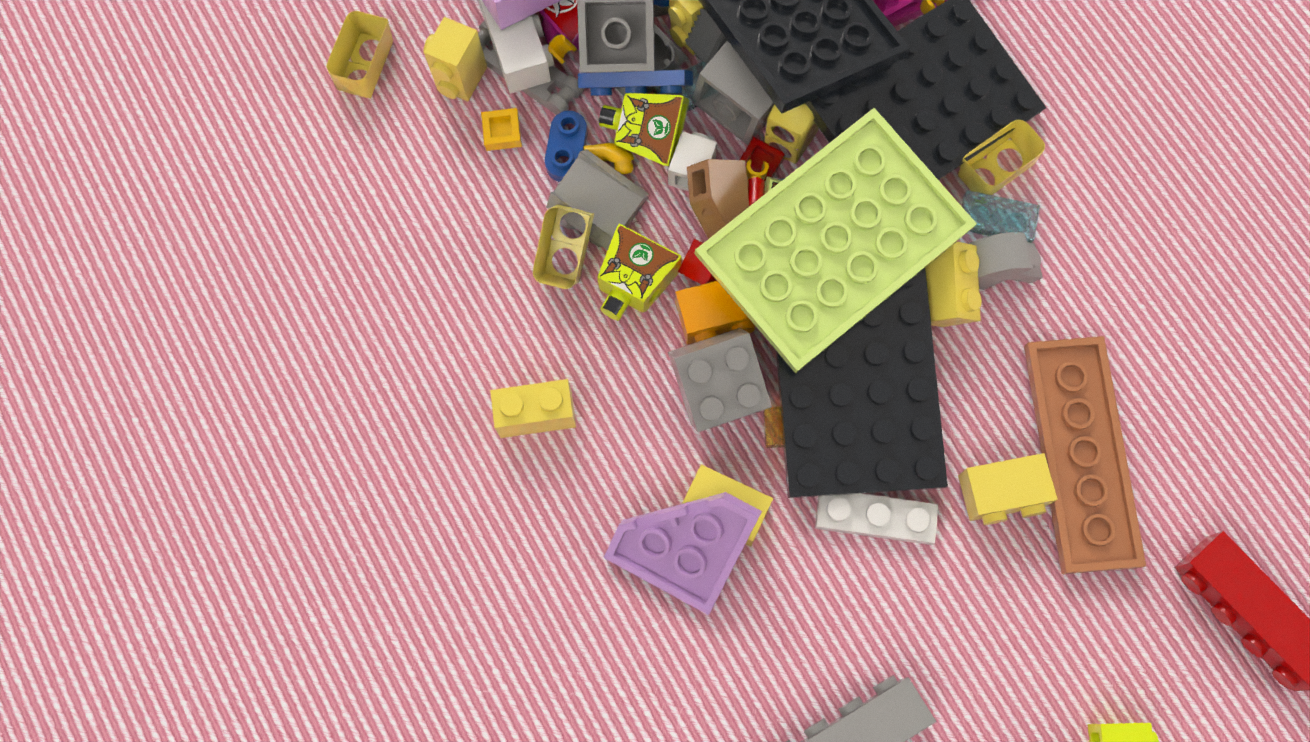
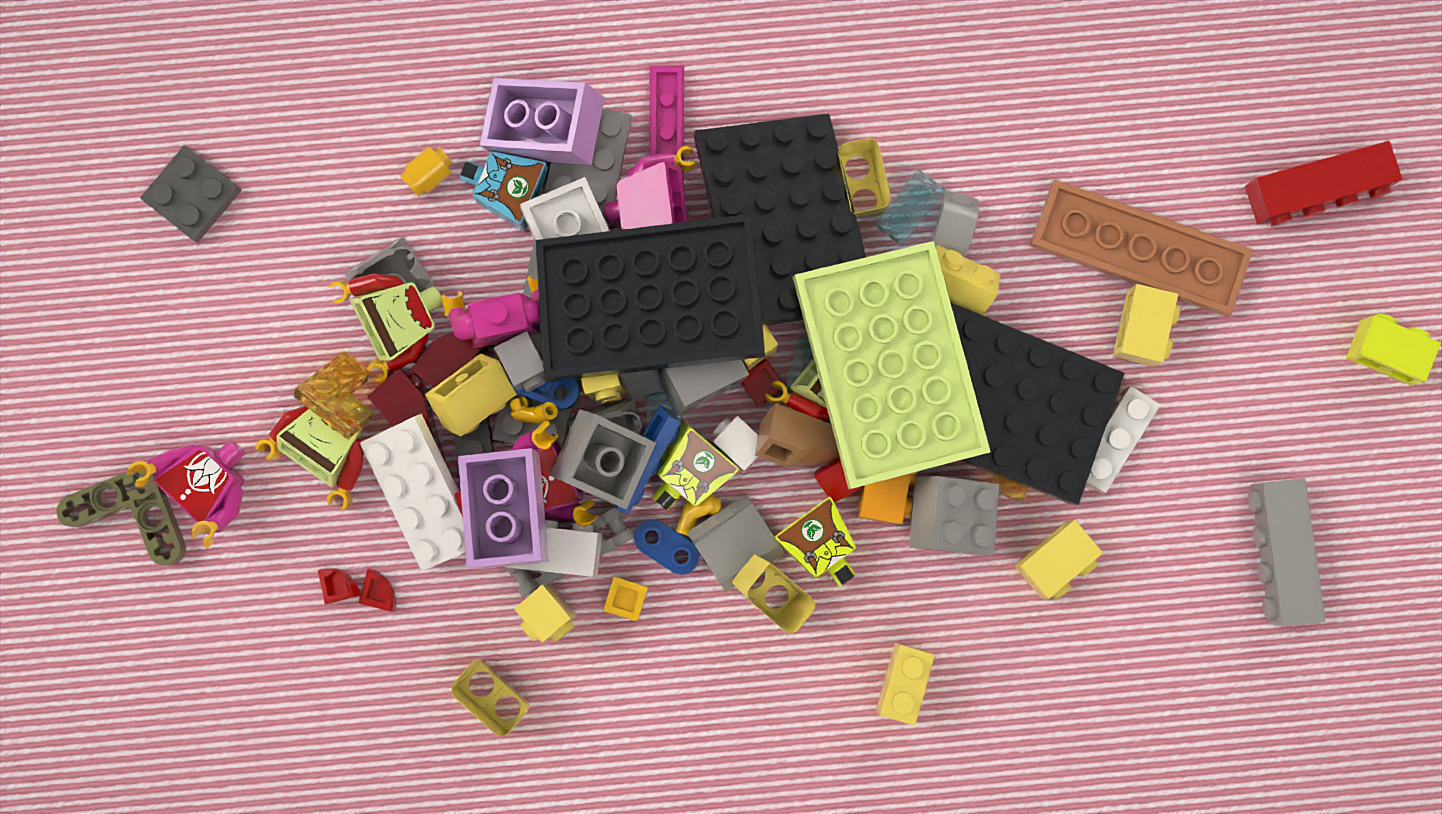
camera: 70 degrees left, 10 degrees up
(686, 546) = (1083, 609): lavender plate -> none

